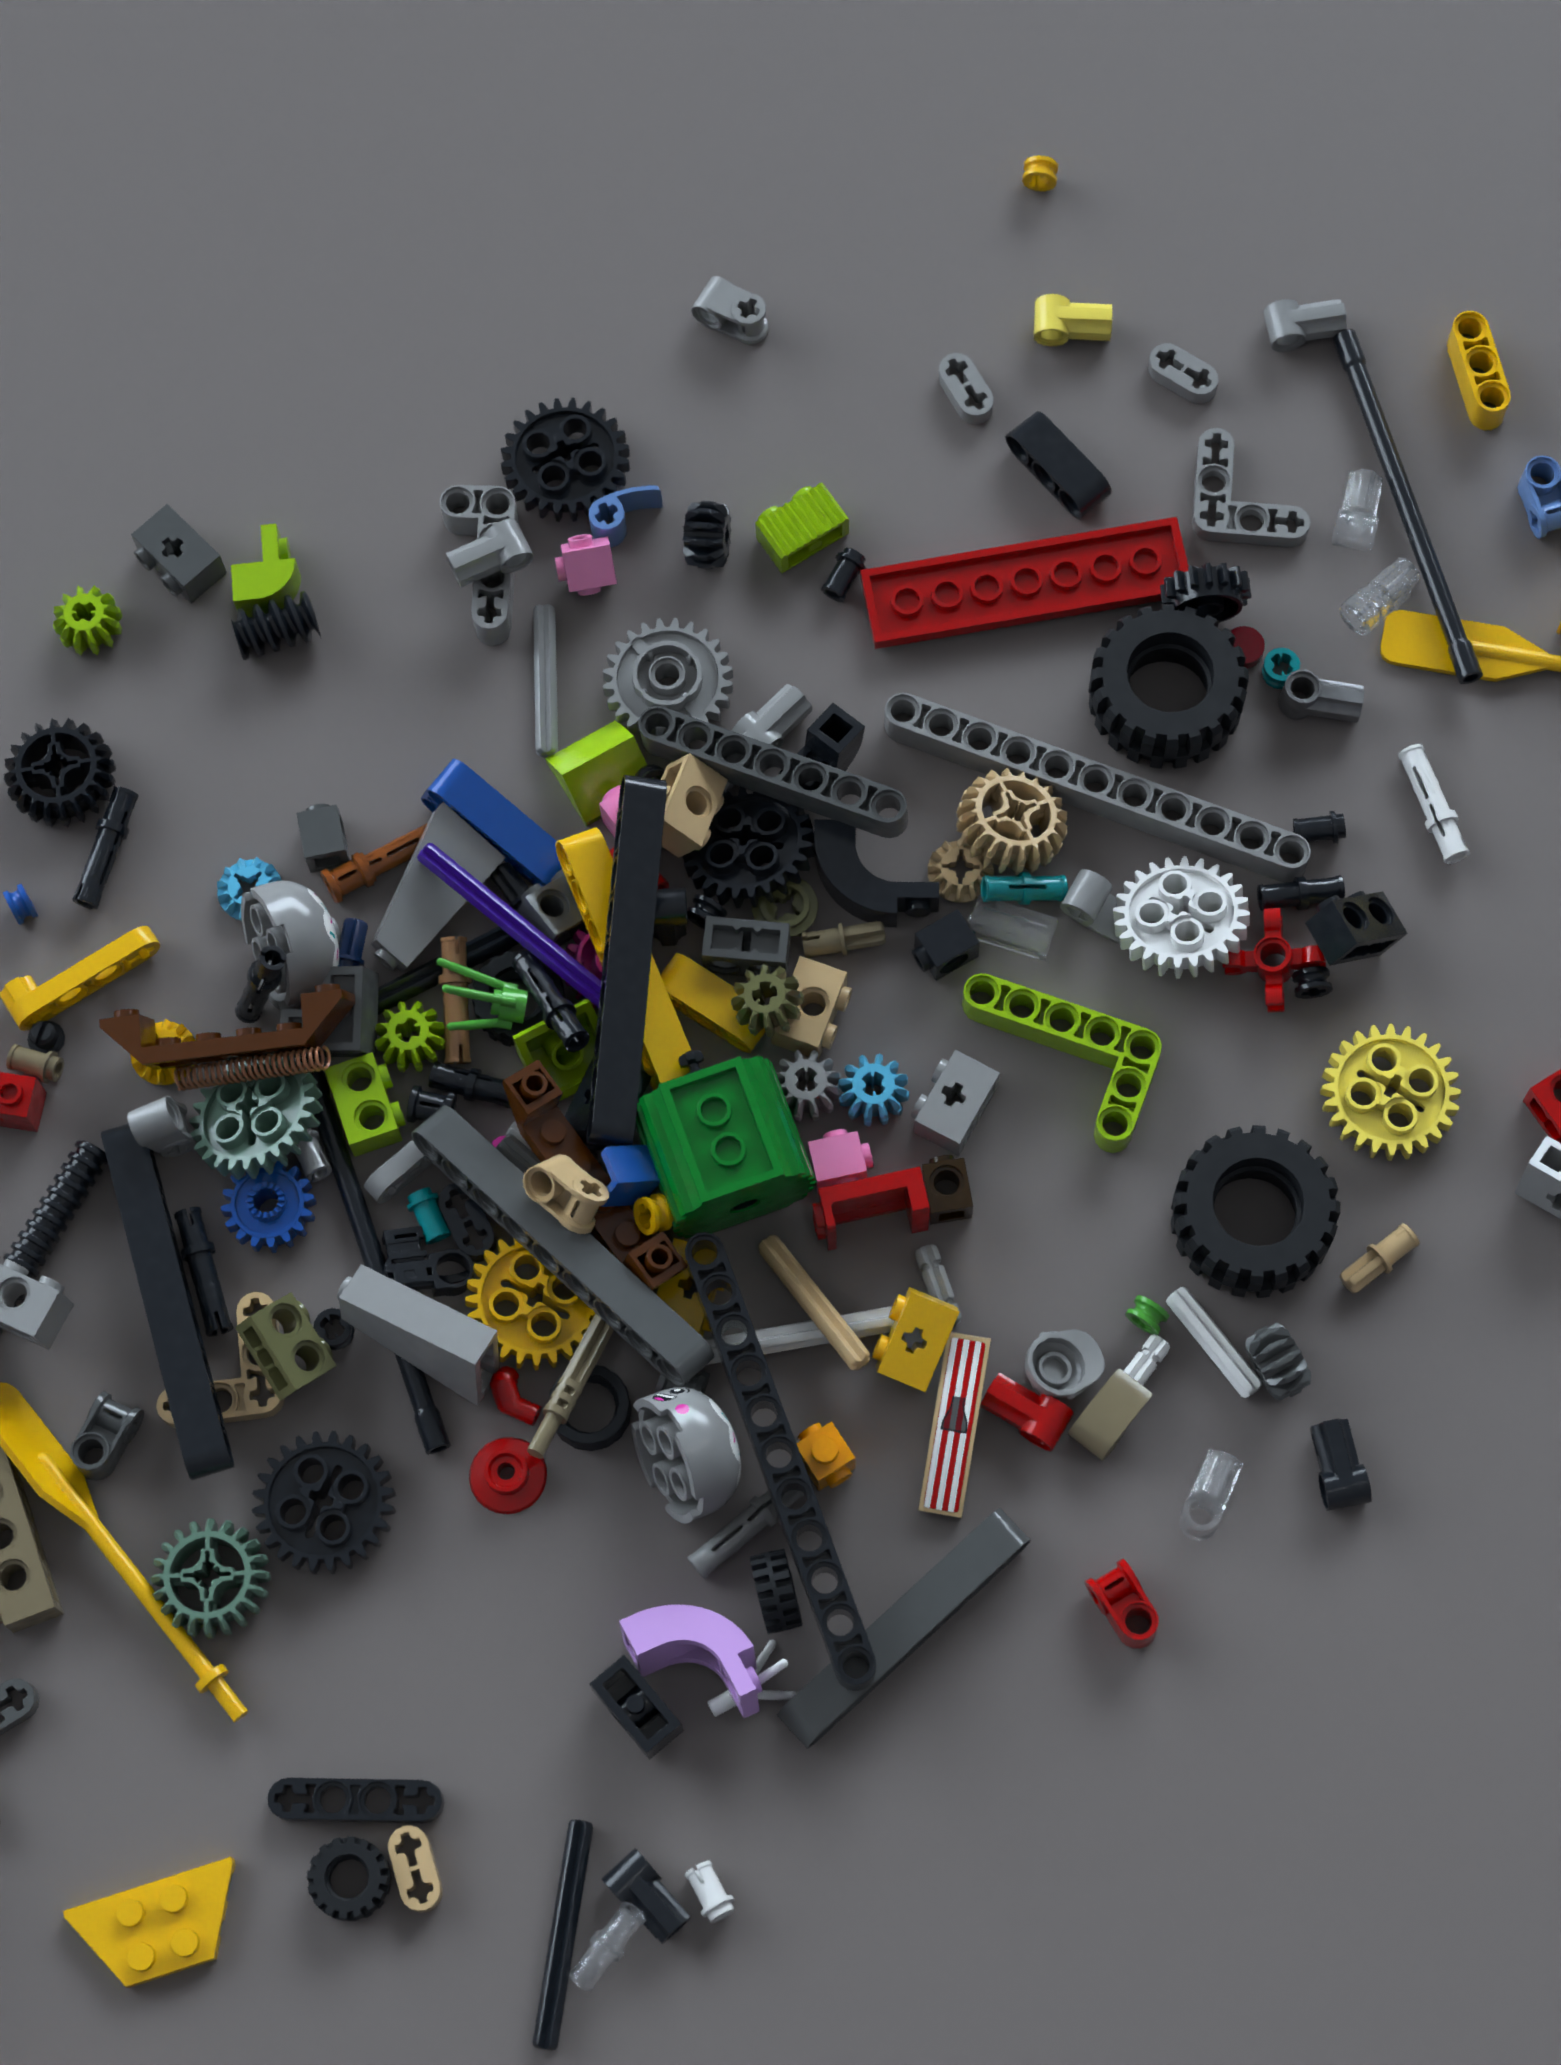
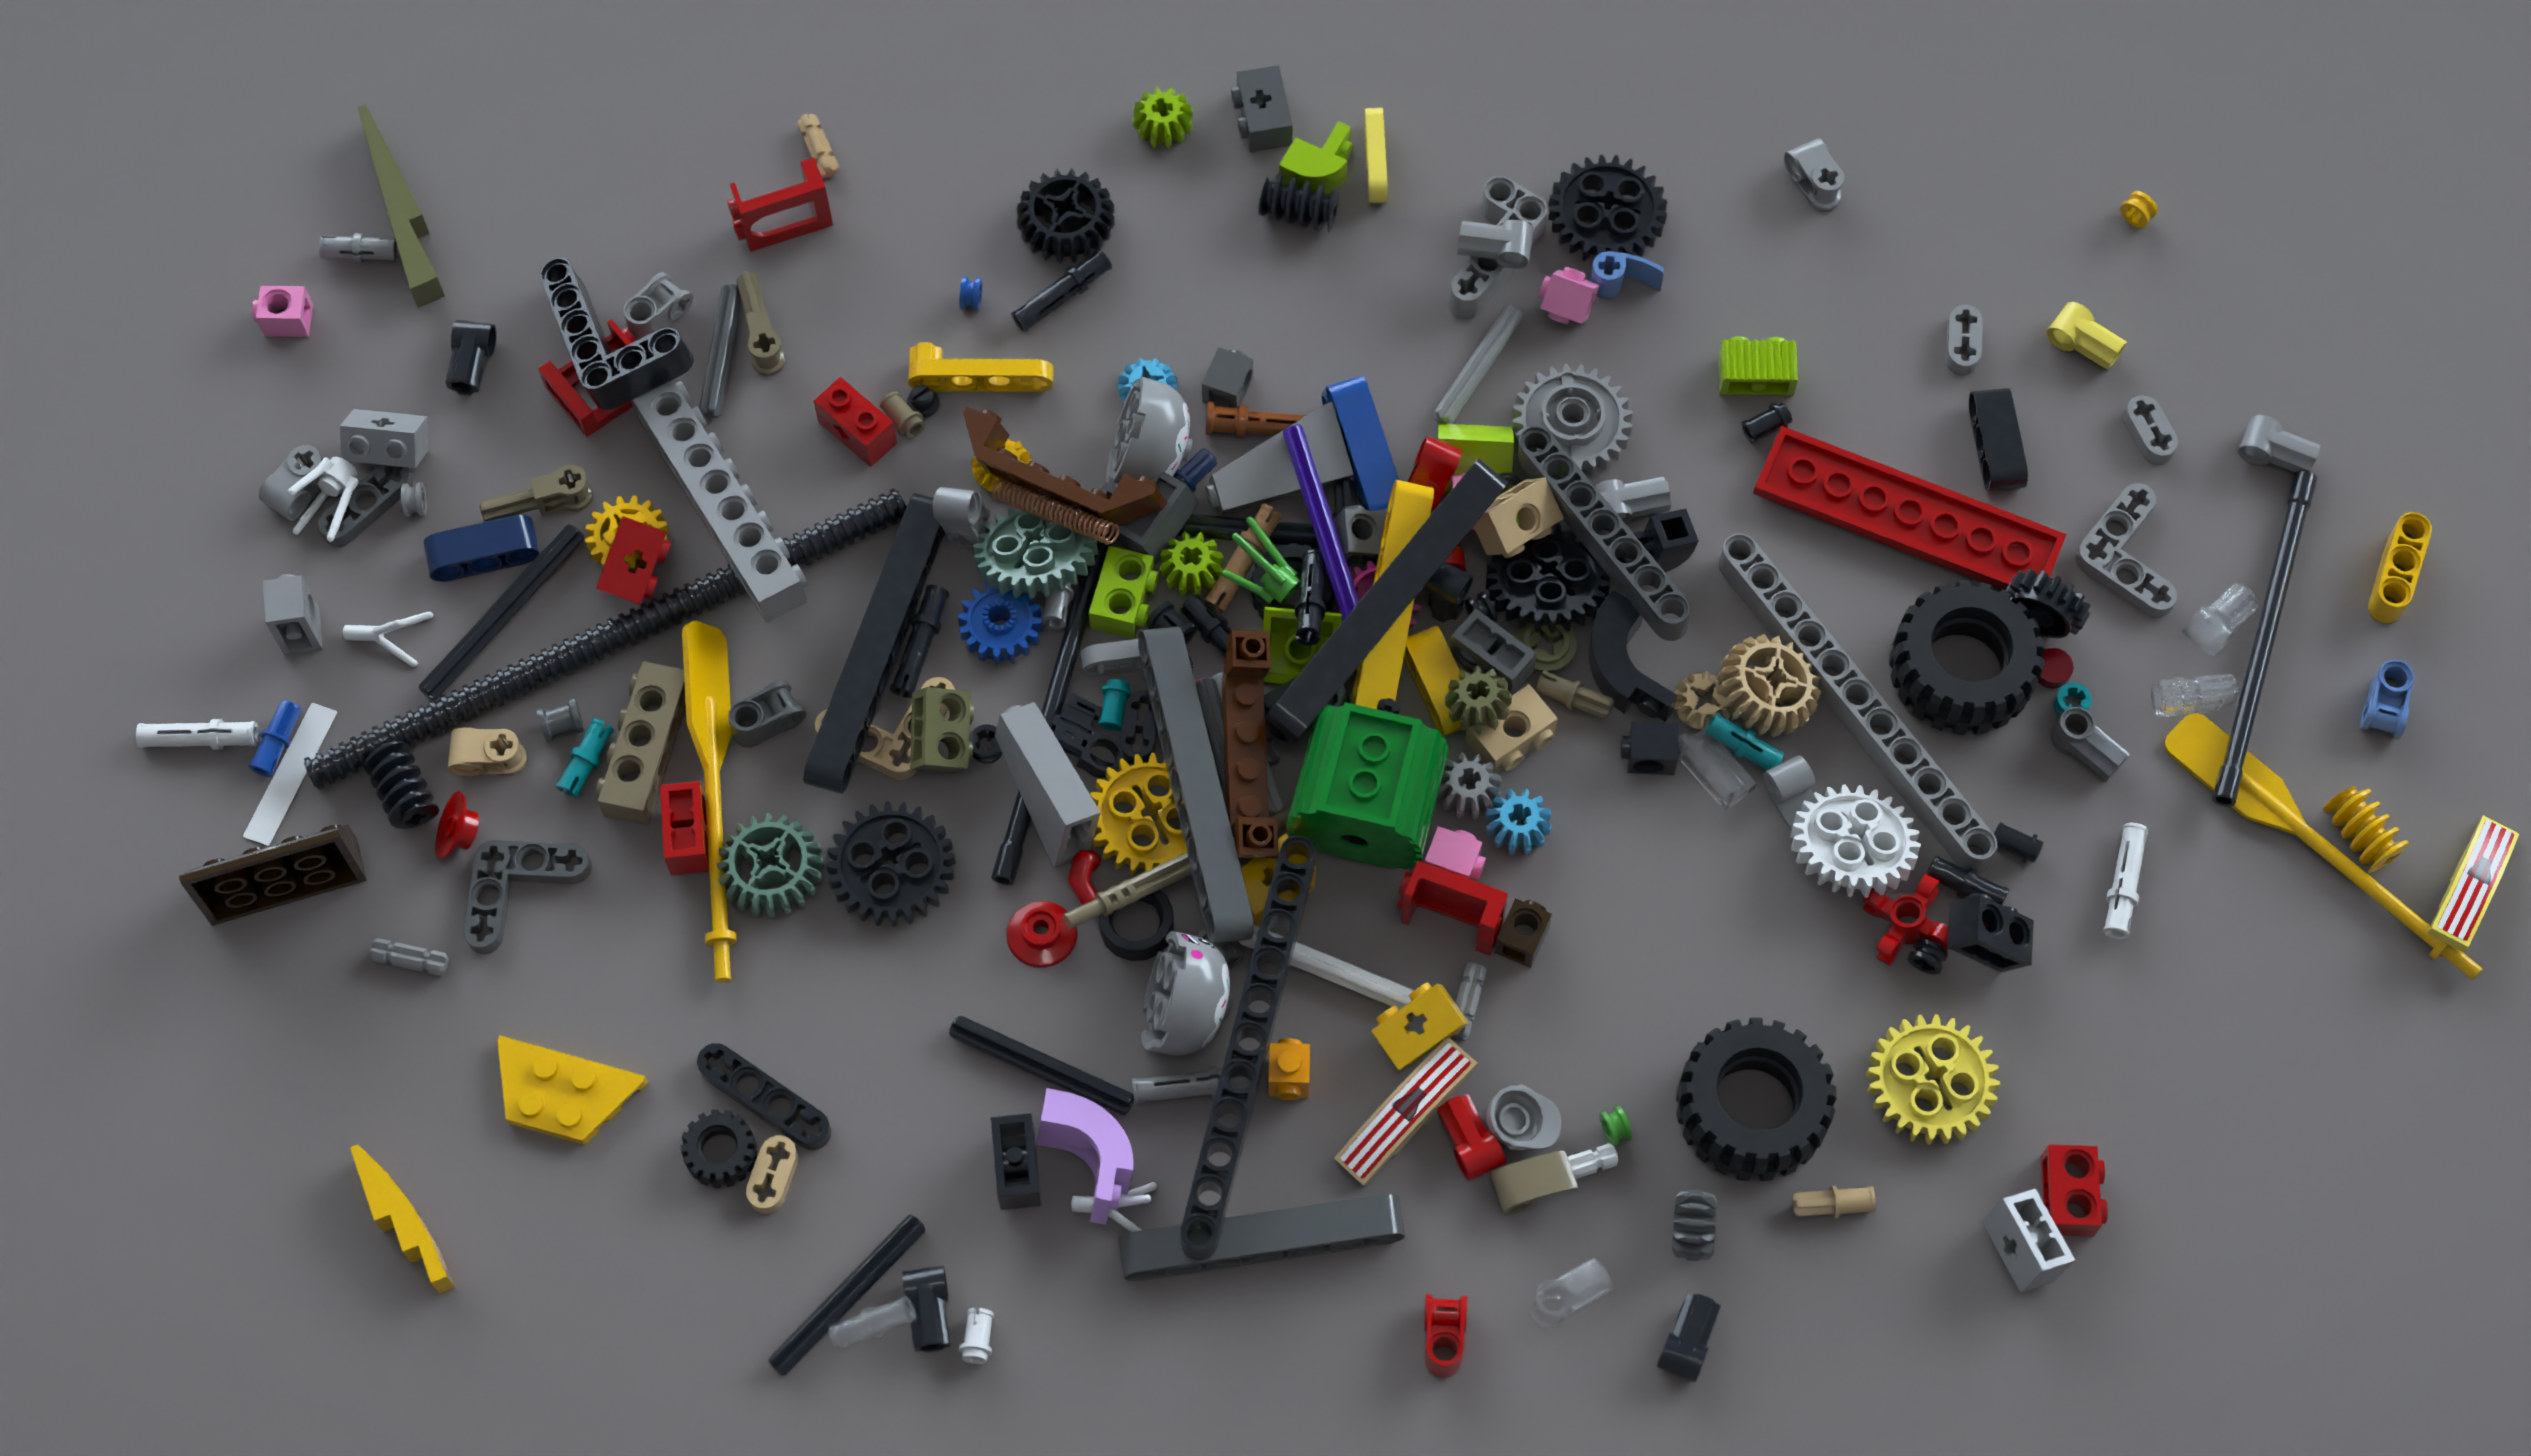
camera: 30 degrees right, 5 degrees down
(105, 1596) = (684, 828): none -> red brick
(272, 977) = (1105, 450): black pin -> none
(315, 536) = (1375, 155): none -> light yellow beam
(566, 1191) = (1222, 739): tan piece -> none
(575, 804) = (1435, 466): none -> red piece
(594, 1599) = (1041, 1065): none -> black axle
(630, 1174) = (1280, 761): blue panel -> none
(652, 1214) = (1278, 802): yellow bush -> none
(707, 534) = (1677, 328): black gear -> none
(776, 1591) = (1180, 1144): black tyre -> none
(814, 1302) = (1360, 950): tan axle -> none
(953, 1125) = (1566, 887): light grey brick -> none
(1075, 1042) = (1704, 884): lime beam -> none
(1214, 1342) = (1655, 1181): white axle -> none

